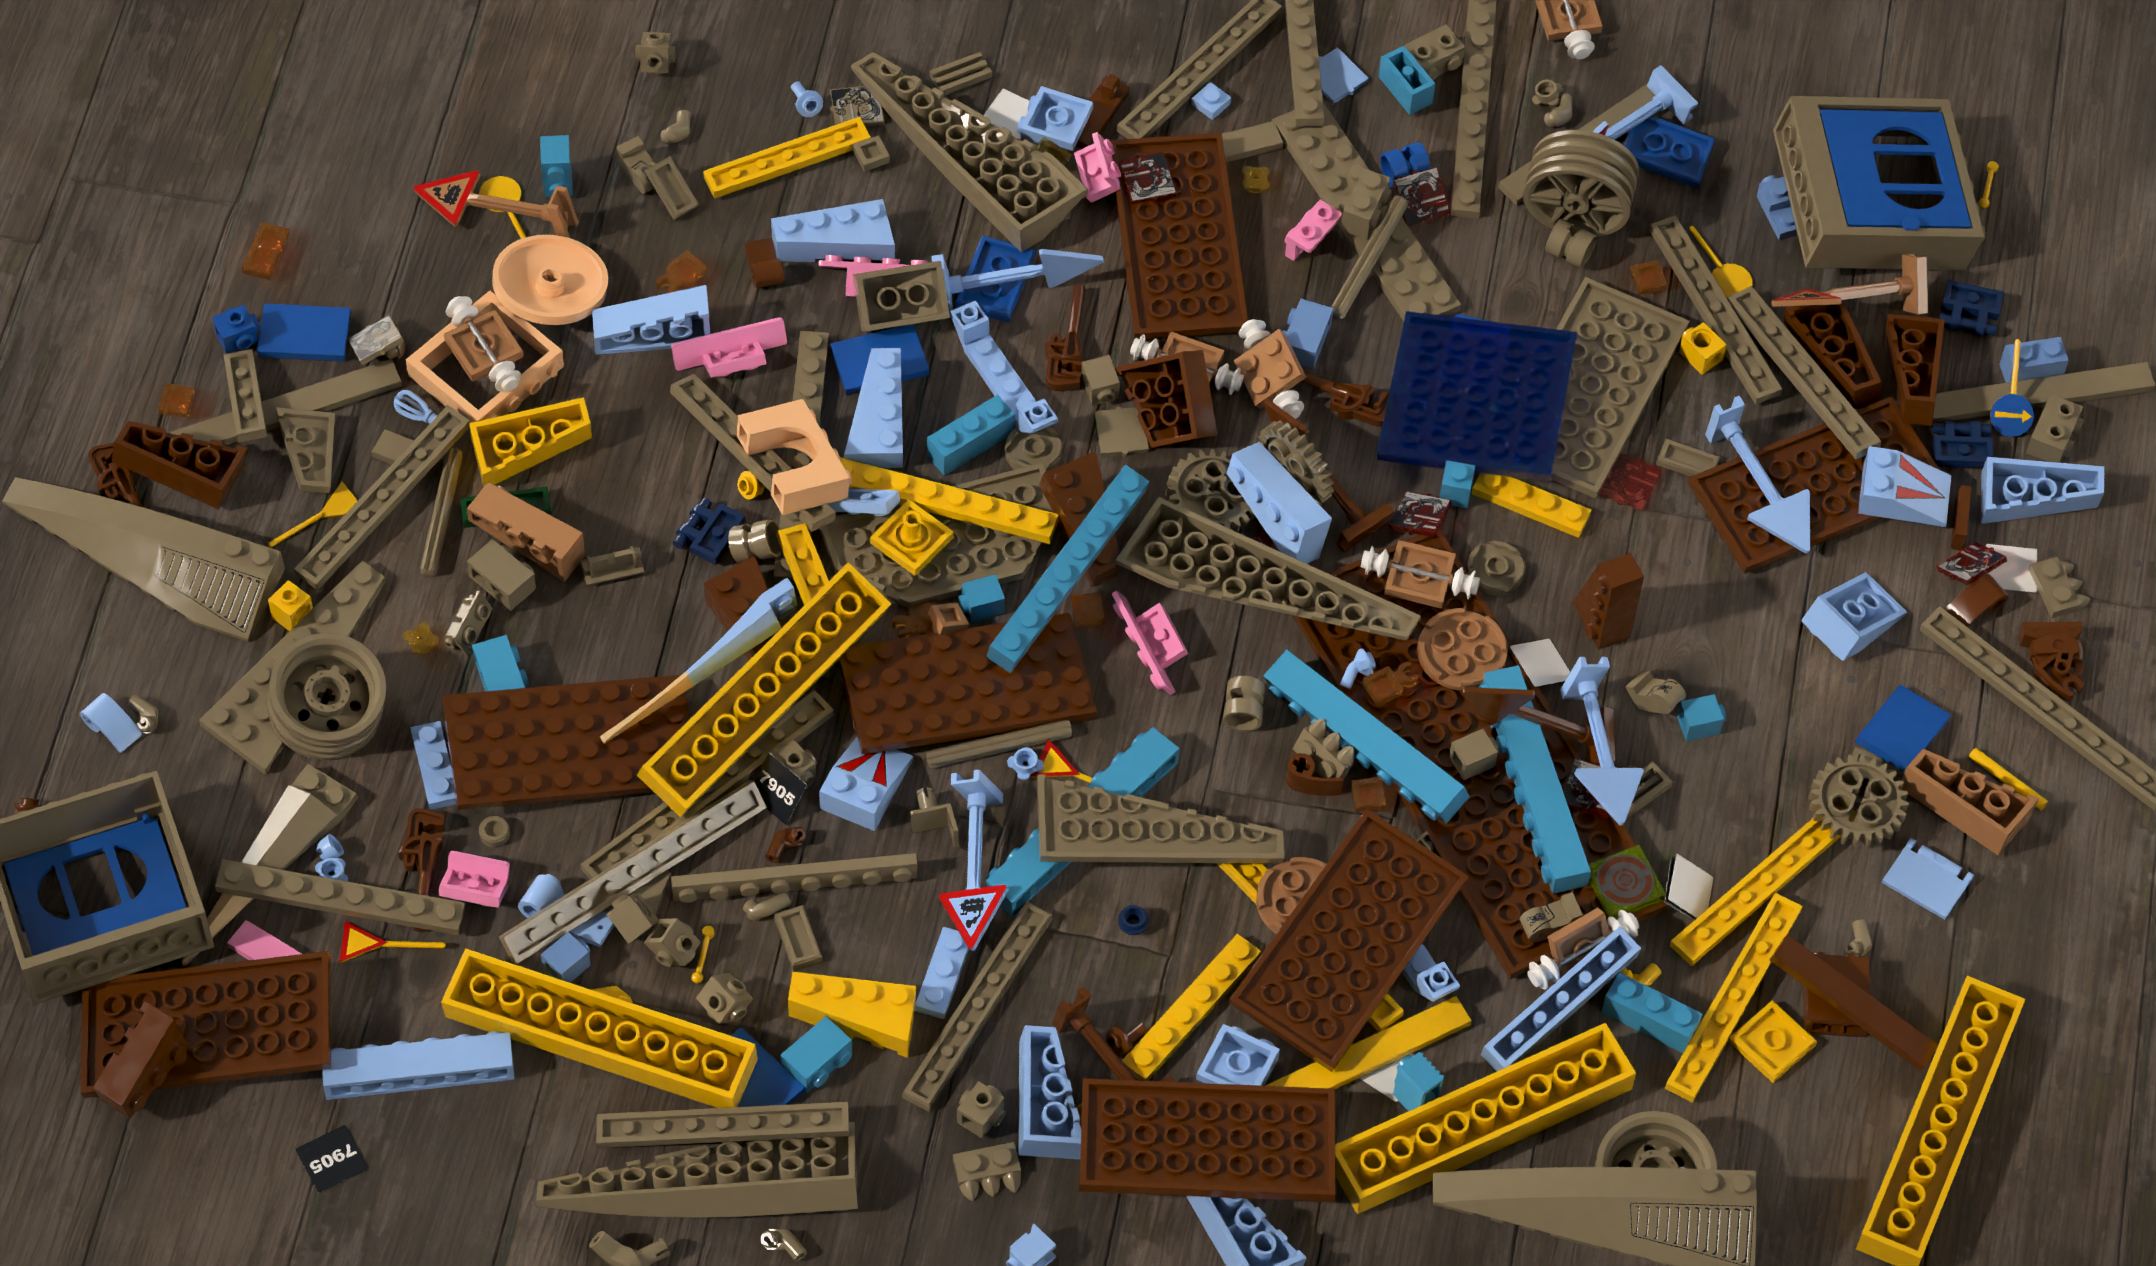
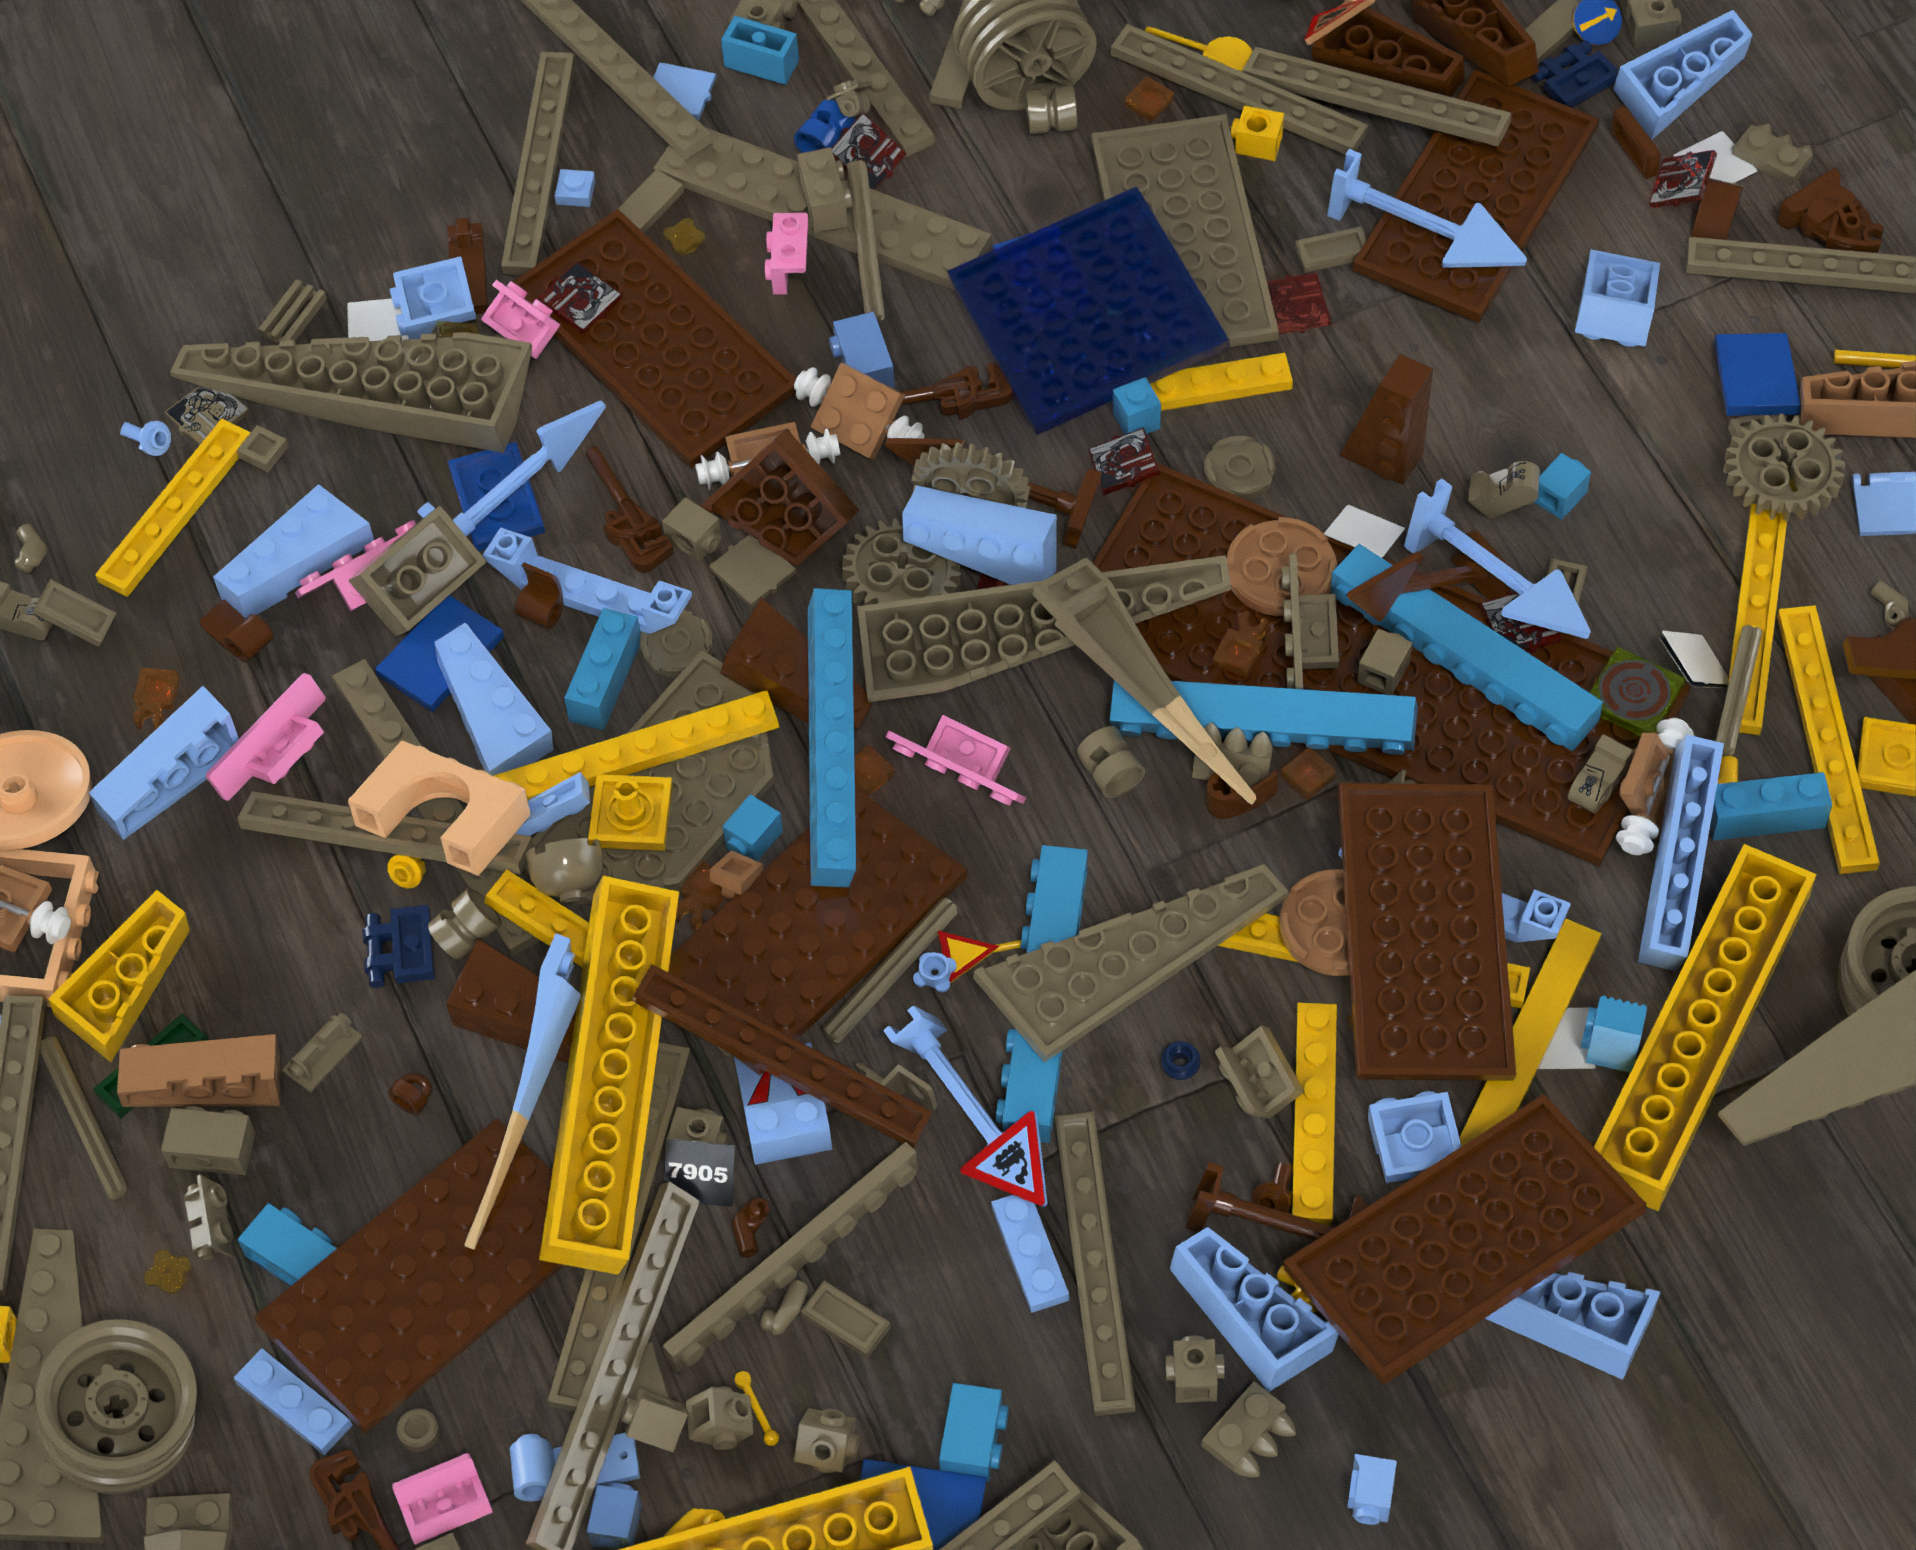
camera: 30 degrees left, 0 degrees up
(641, 626) = (408, 1096): none -> reddish brown tile
(841, 544) = (566, 868): none -> dark tan cylinder
(858, 1007) = (979, 1349): yellow wedge -> none
(877, 749) = (782, 1056): none -> reddish brown tile
(966, 364) = (541, 598): none -> reddish brown panel
(1172, 960) = (1259, 1074): none -> dark tan bracket
(1295, 607) = (1100, 625): none -> dark tan plate
(1363, 663) = (1199, 642): light blue plate -> none
(1420, 573) = (1180, 517): medium nougat plate -> none
(1438, 152) = (852, 97): none -> dark tan hinge
(1442, 700) = (1313, 628): none -> dark tan bracket
(1696, 925) = (1738, 688): none -> dark tan axle
(1903, 488) = (1562, 147): light blue slope -> none

